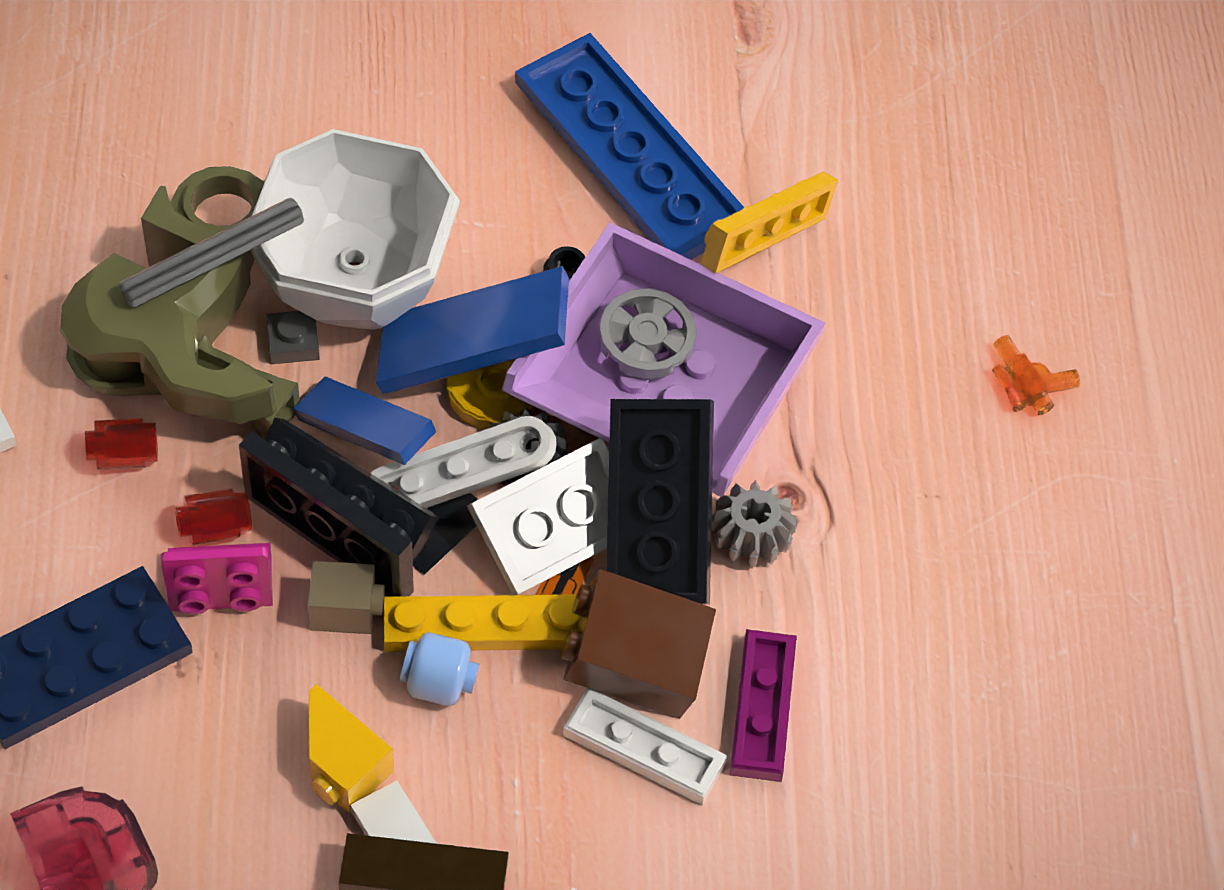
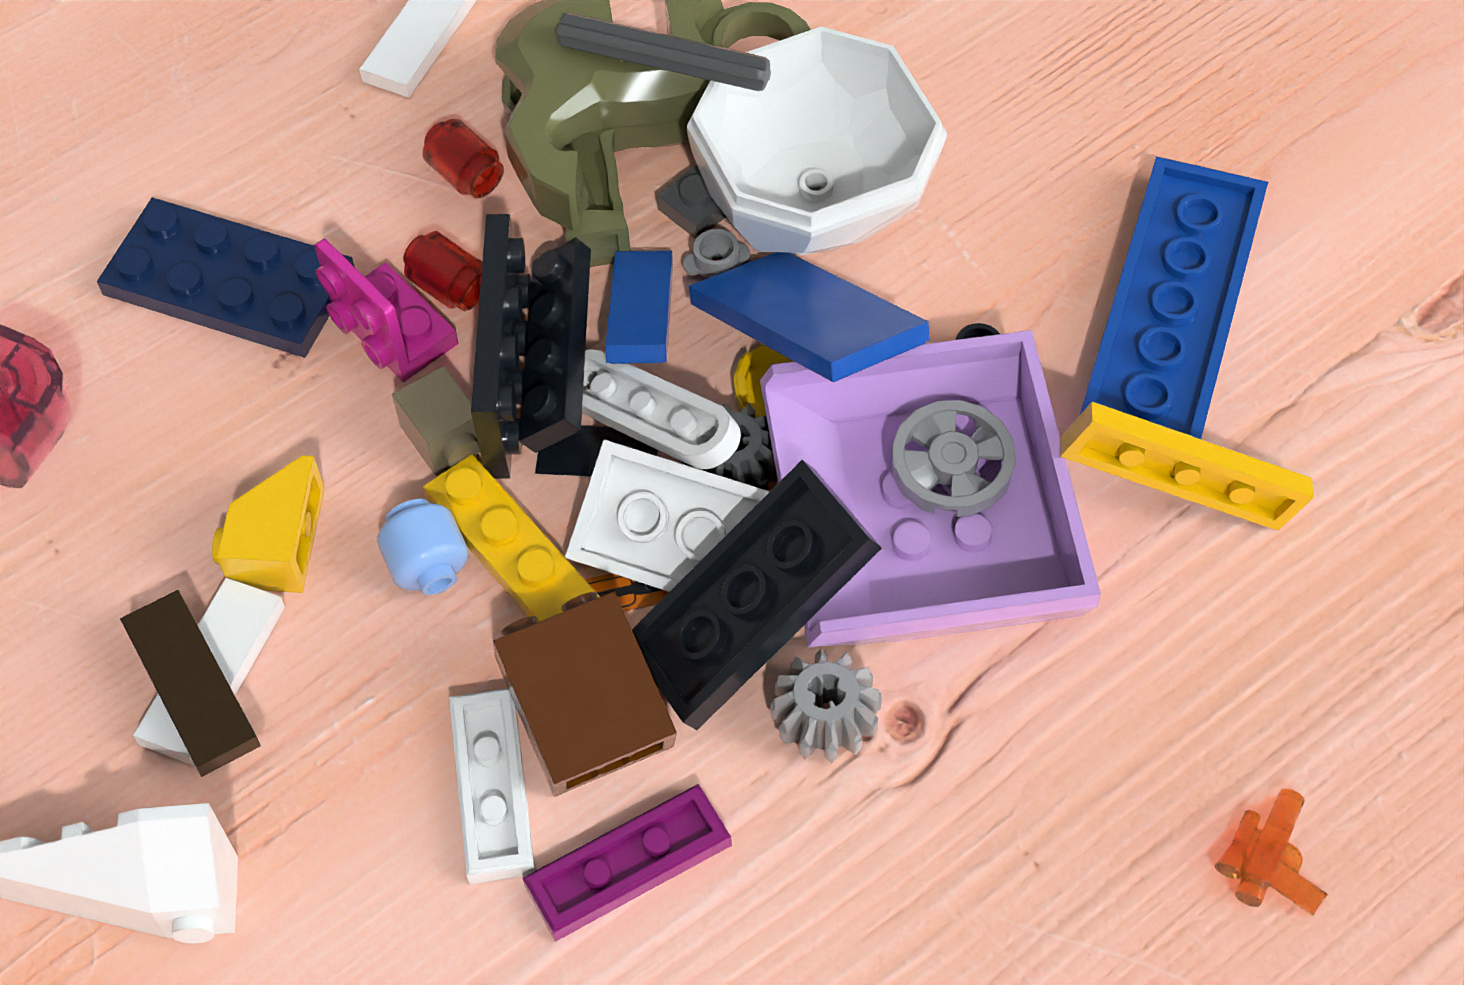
camera: 60 degrees right, 0 degrees up
(353, 345) = (715, 245): none -> light grey plate

